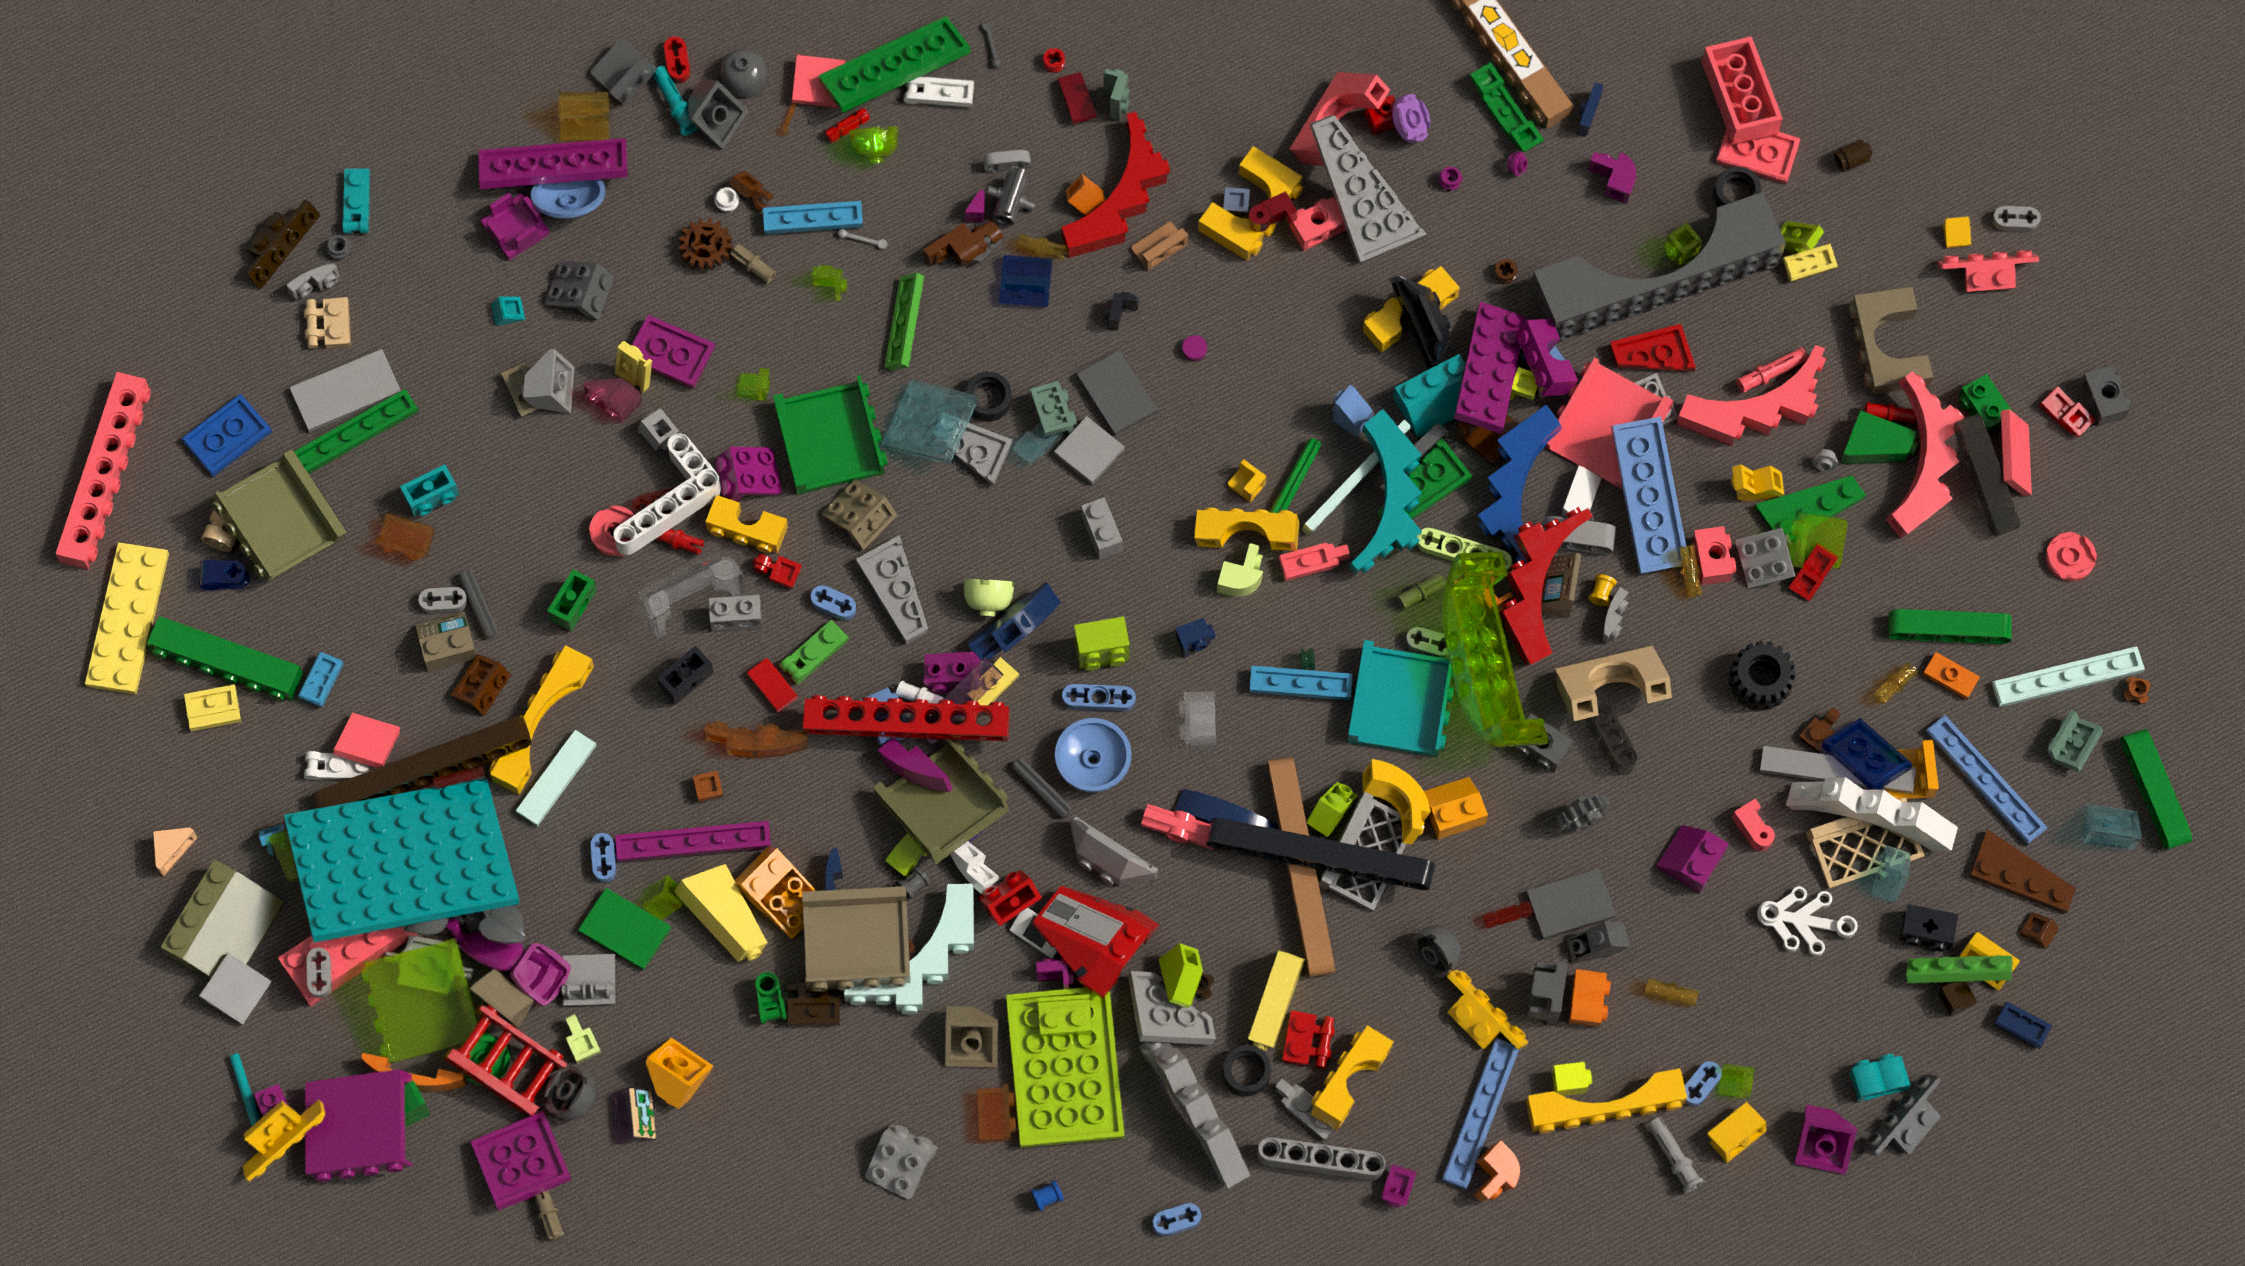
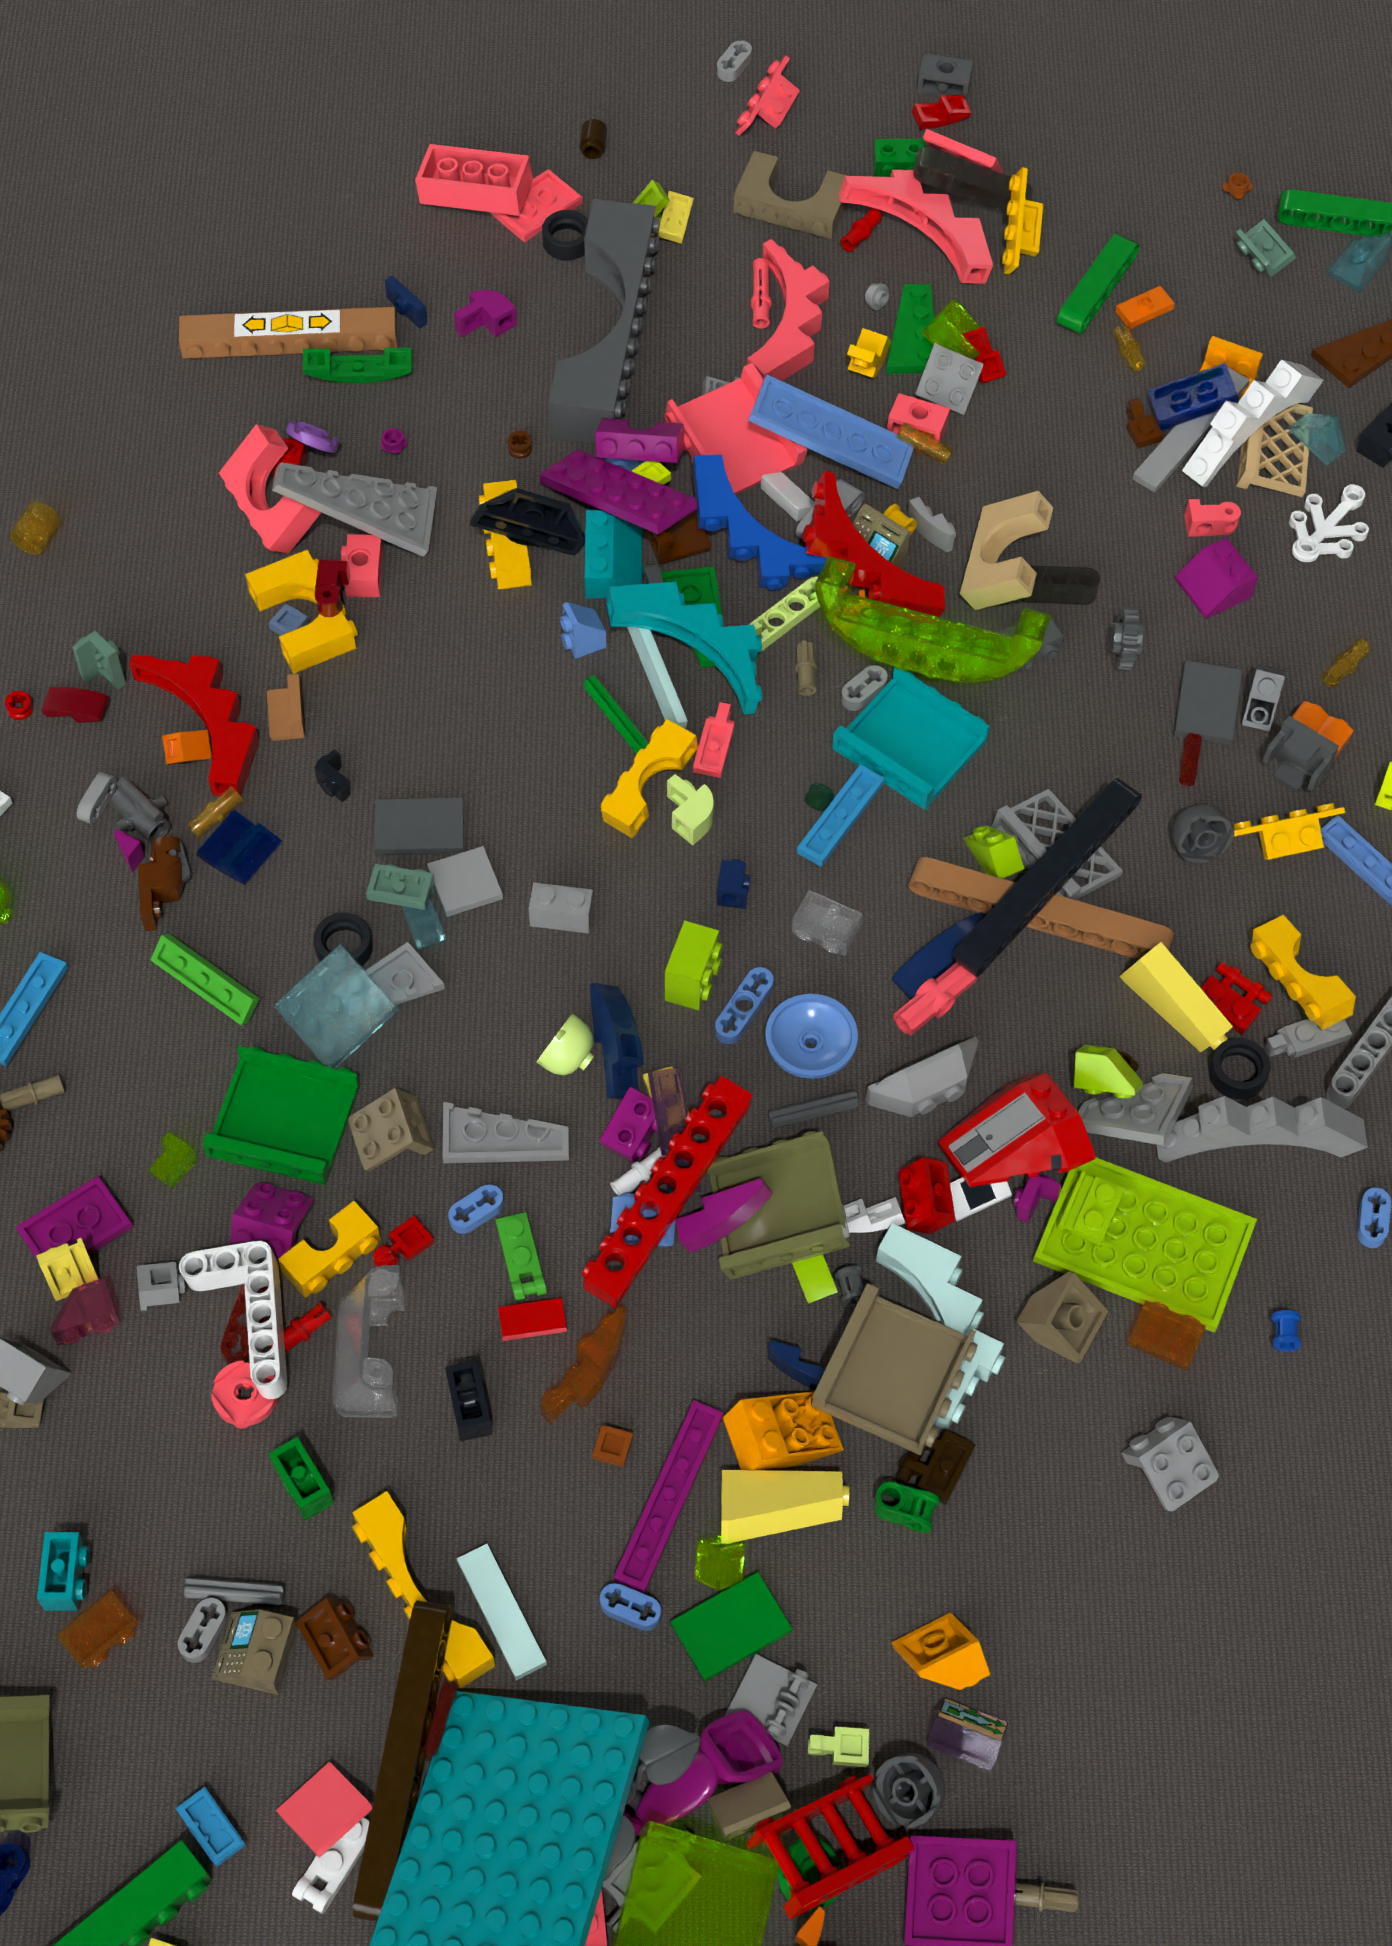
camera: 60 degrees left, 10 degrees down
(735, 613) = (427, 1312): light grey brick -> none
(831, 277) = (104, 1023): clear neon green bracket -> none
(882, 244) = (100, 961): light grey hinge -> none
(1194, 348) = (418, 735): magenta tile -> none
(1247, 481) = (593, 756): yellow panel -> none
(1400, 790) = (1020, 781): yellow arch -> none
(1455, 807) = (1052, 747): light orange slope -> none
(1517, 163) = (418, 381): magenta plate -> none
(1654, 350) = (682, 367): red wing -> none
(1682, 244) = (593, 293): clear neon green brick -> none
(1772, 659) = (1068, 422): black tyre -> none
(1878, 441) = (882, 249): green slope -> none
(1957, 232) = (718, 105): yellow slope -> none
(1970, 538) = (1024, 223): none -> yellow bracket
(1986, 780) = (1264, 329): medium blue tile -> none
(2068, 676) = (1195, 228): light aqua tile -> none
(2070, 556) = (1080, 173): coral tile -> none

